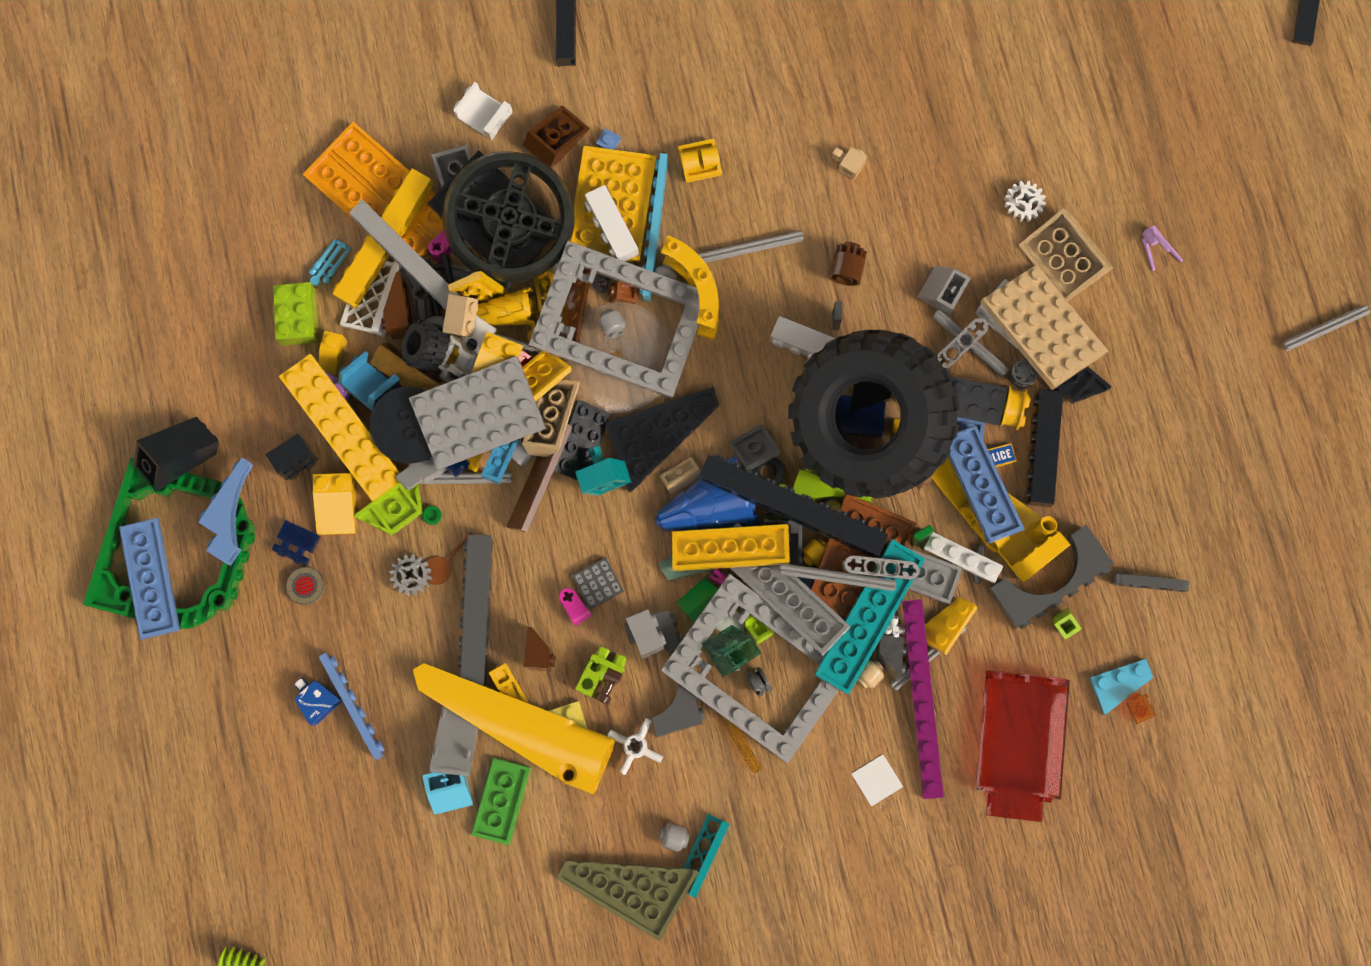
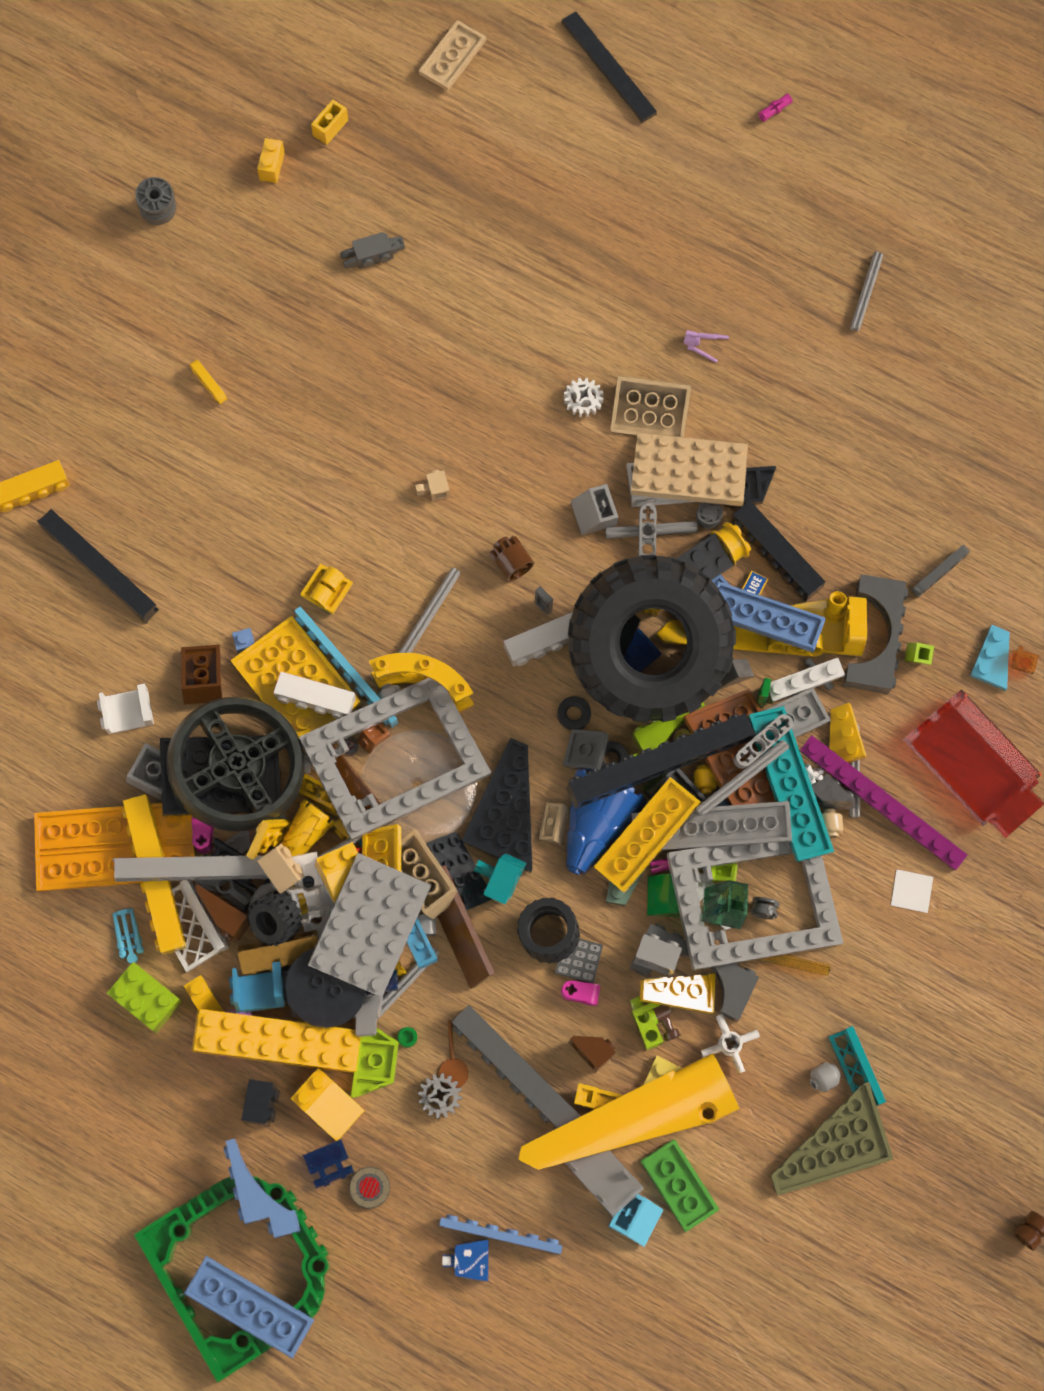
camera: 55 degrees left, 5 degrees down
(174, 452) = (166, 1194): black slope -> none
(595, 520) = (535, 911): none -> black tyre
(611, 323) = (392, 764): light grey head -> none
(639, 678) = (686, 993): none -> wing
(764, 415) = (574, 701): none -> black tyre
(918, 501) = (739, 672): none -> flat silver slope

